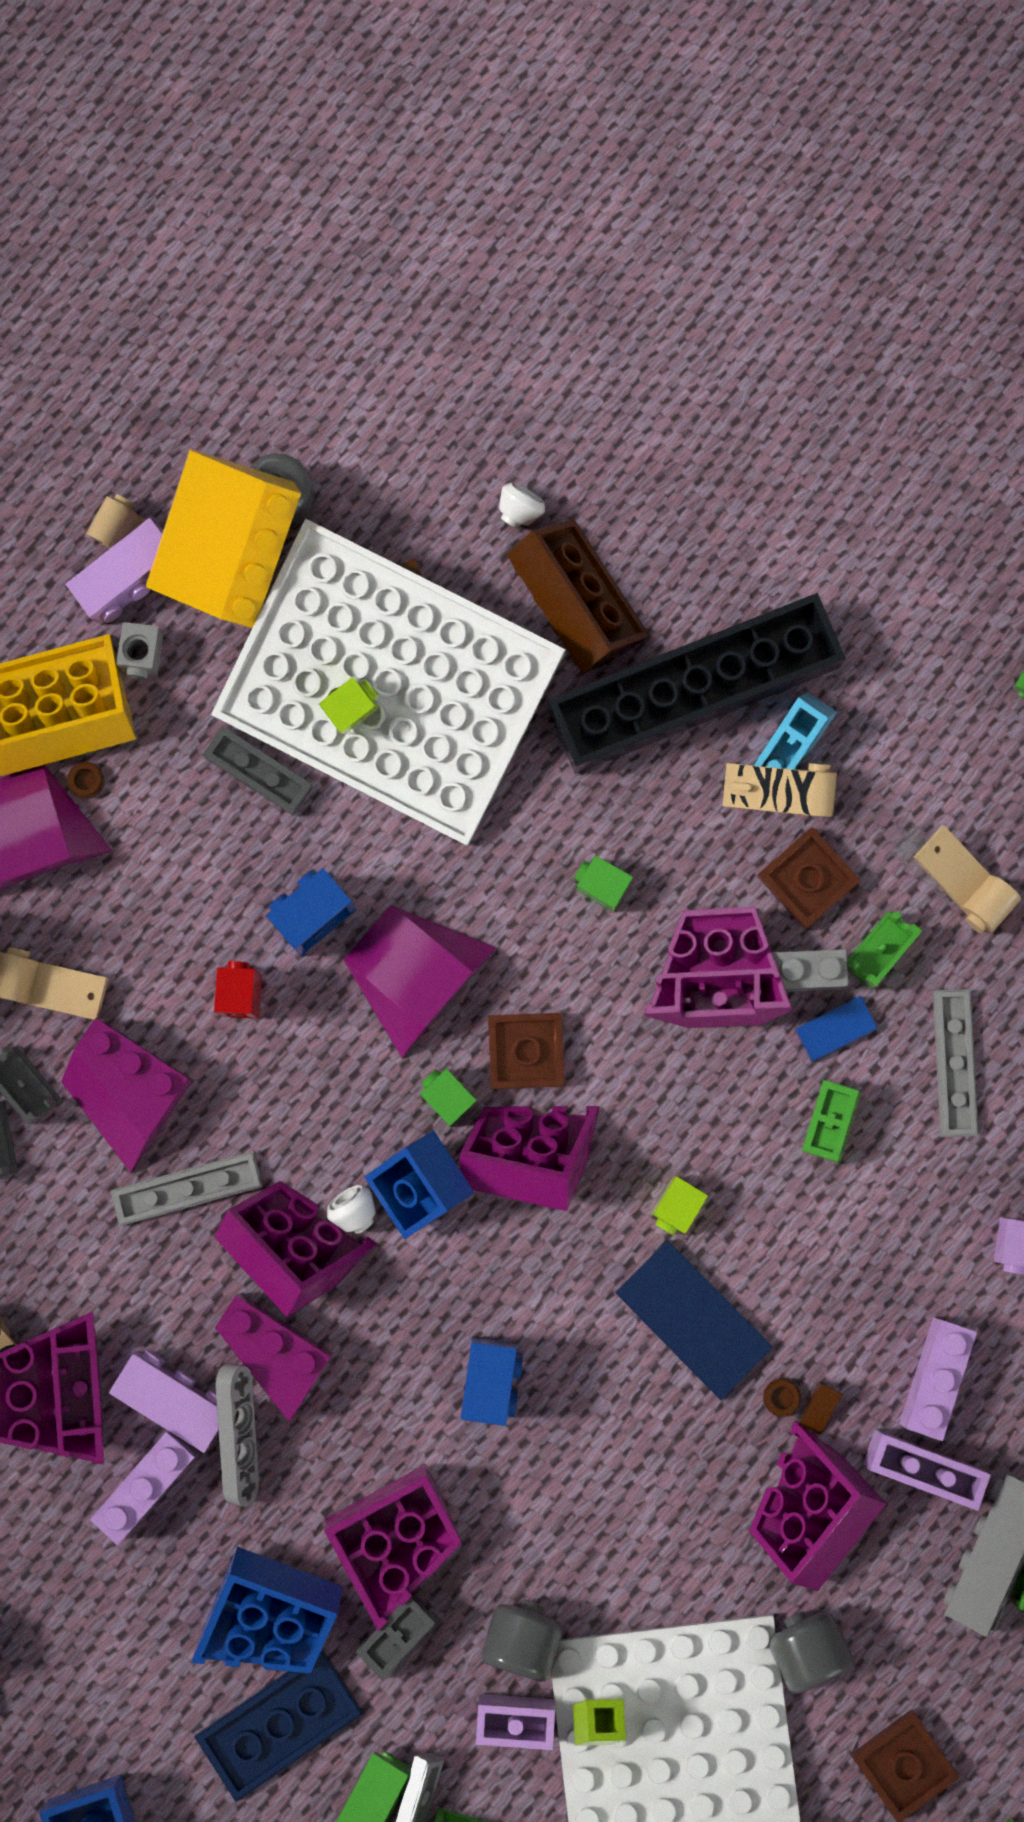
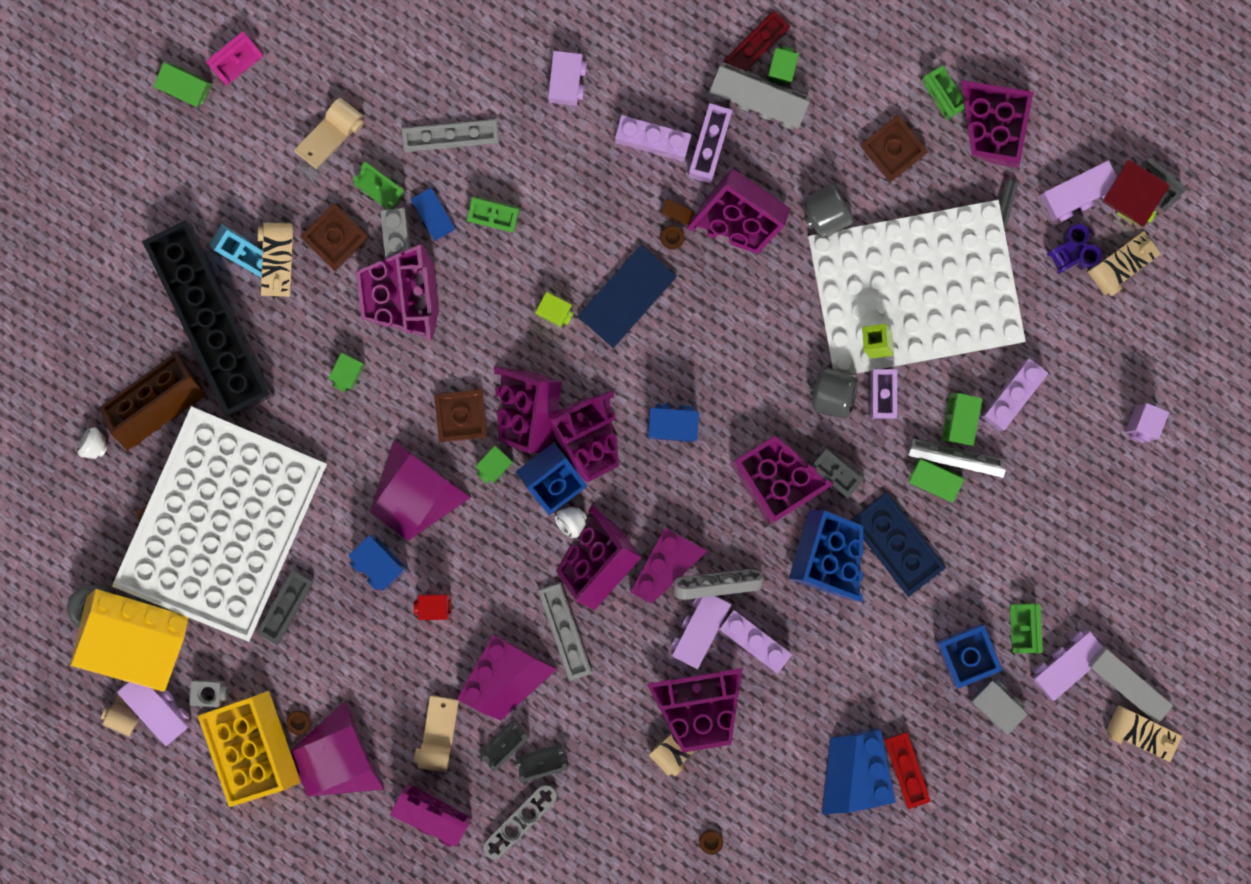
camera: 95 degrees left, 5 degrees up
(350, 704) = (236, 546): lime brick -> none
(482, 1244) = (587, 435): none -> magenta wedge

